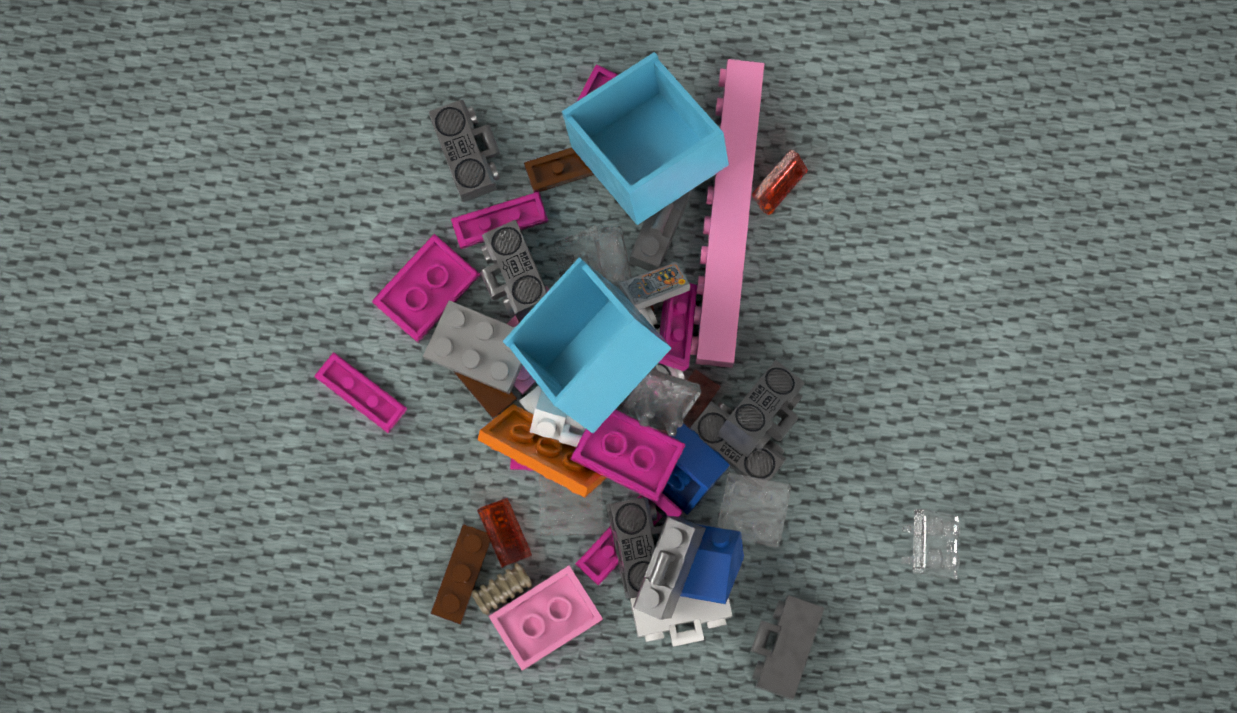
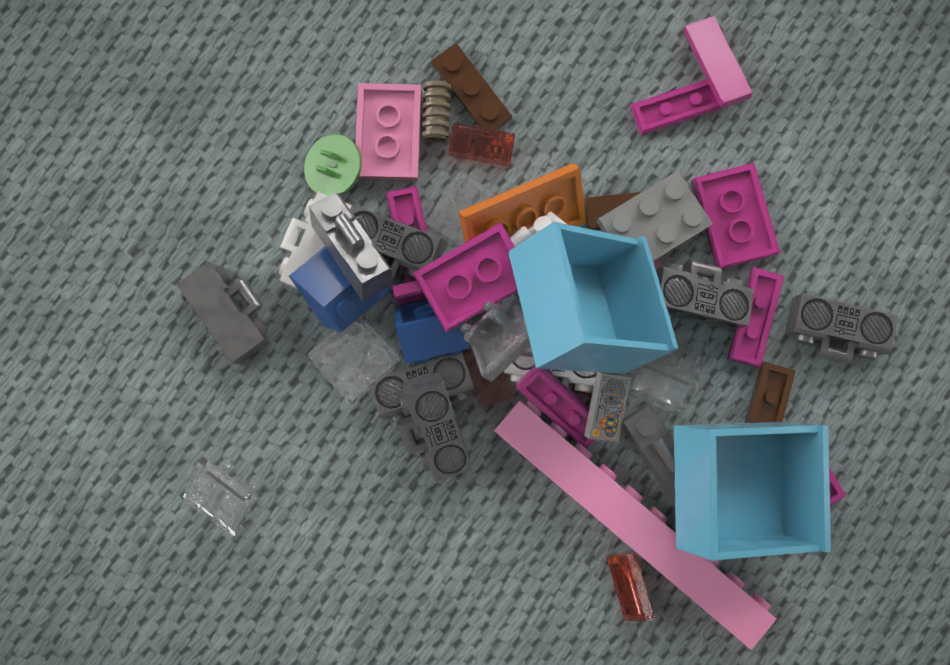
camera: 130 degrees right, 5 degrees up
(305, 384) = (717, 62): none -> tile
(605, 644) = (333, 165): none -> bright green piece

